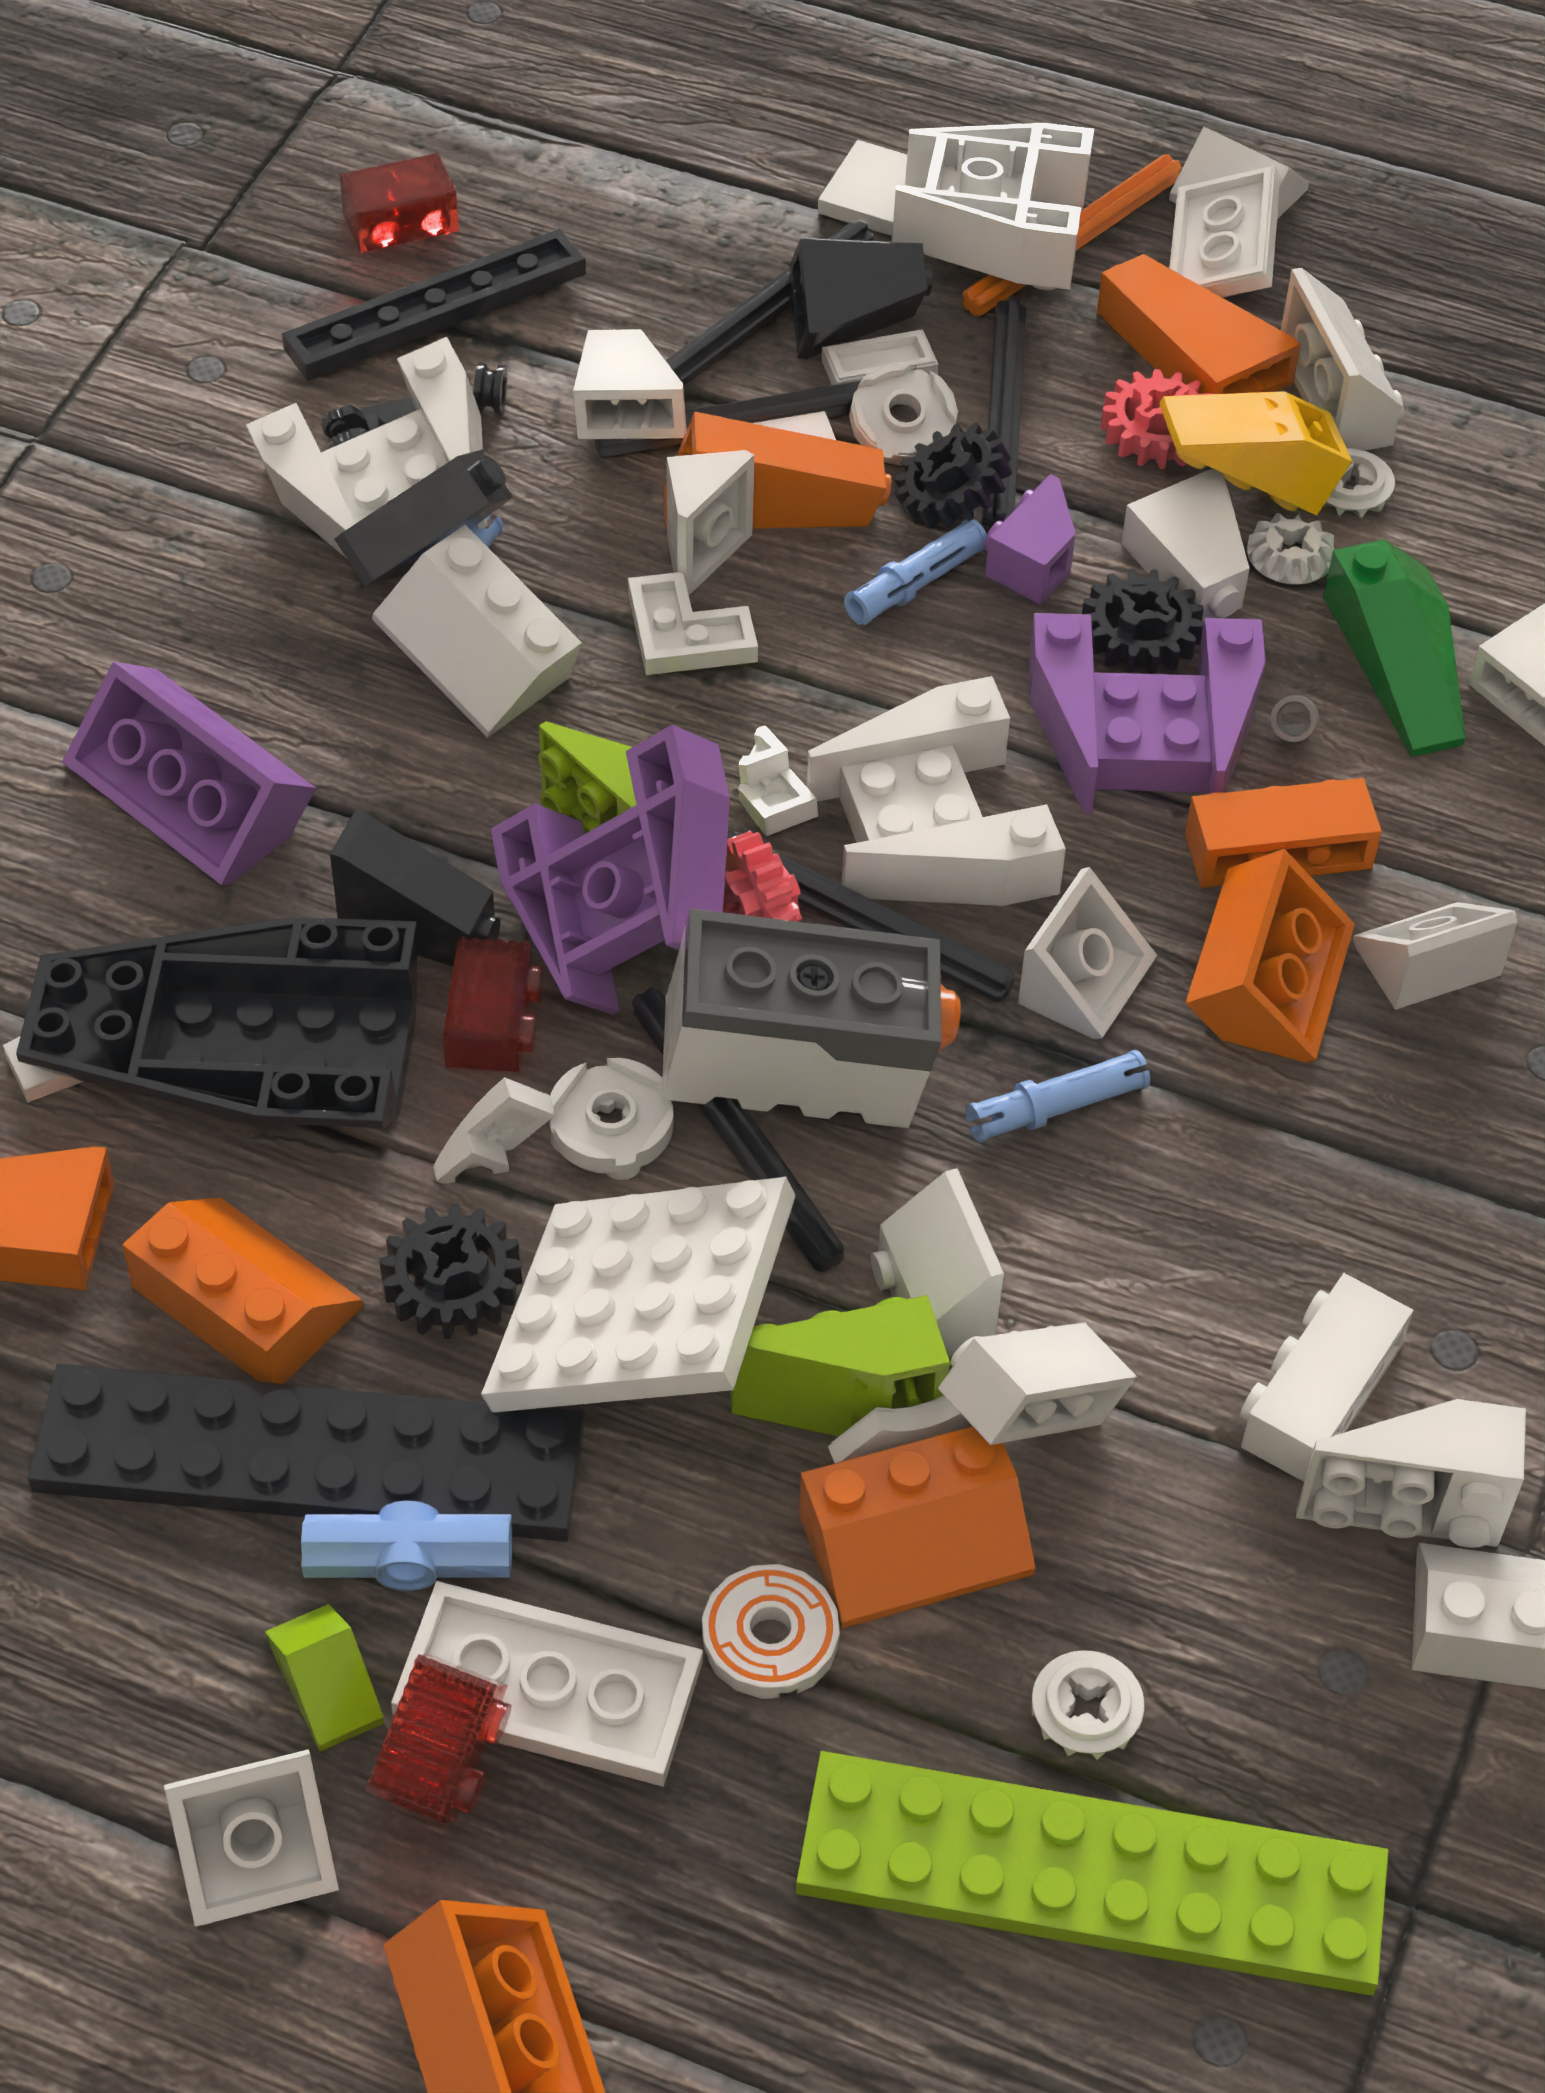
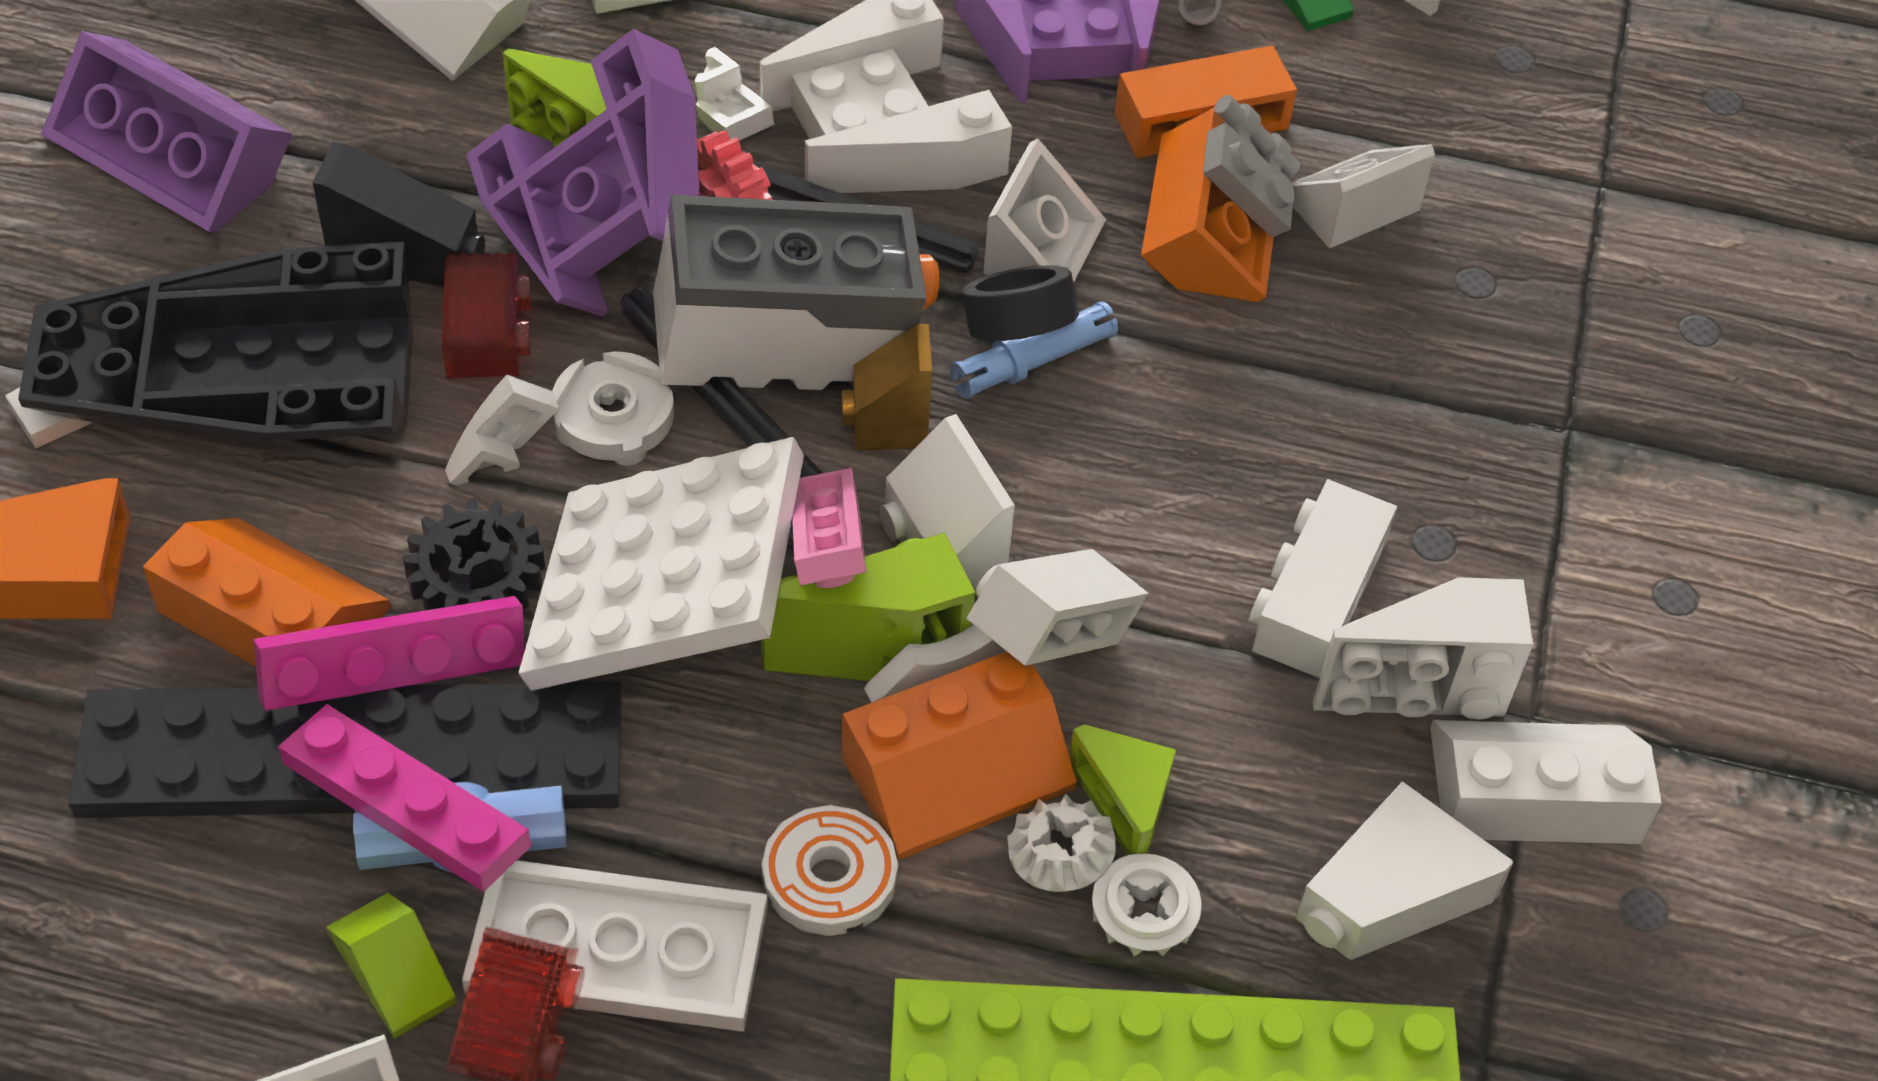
camera: 10 degrees left, 0 degrees up
(355, 1511) = (405, 797): none -> dark pink plate
(356, 1358) = (388, 652): none -> dark pink plate
(808, 1278) = (828, 530): none -> bright pink plate
(898, 1133) = (891, 394): none -> pearl gold slope
(990, 1650) = (1049, 866): none -> white gear
(1047, 1045) = (1020, 303): none -> black tyre
(1084, 1574) = (1124, 781): none -> lime slope
(1315, 928) = (1251, 166): none -> light grey plate
(1353, 1707) = (1400, 877): none -> white slope

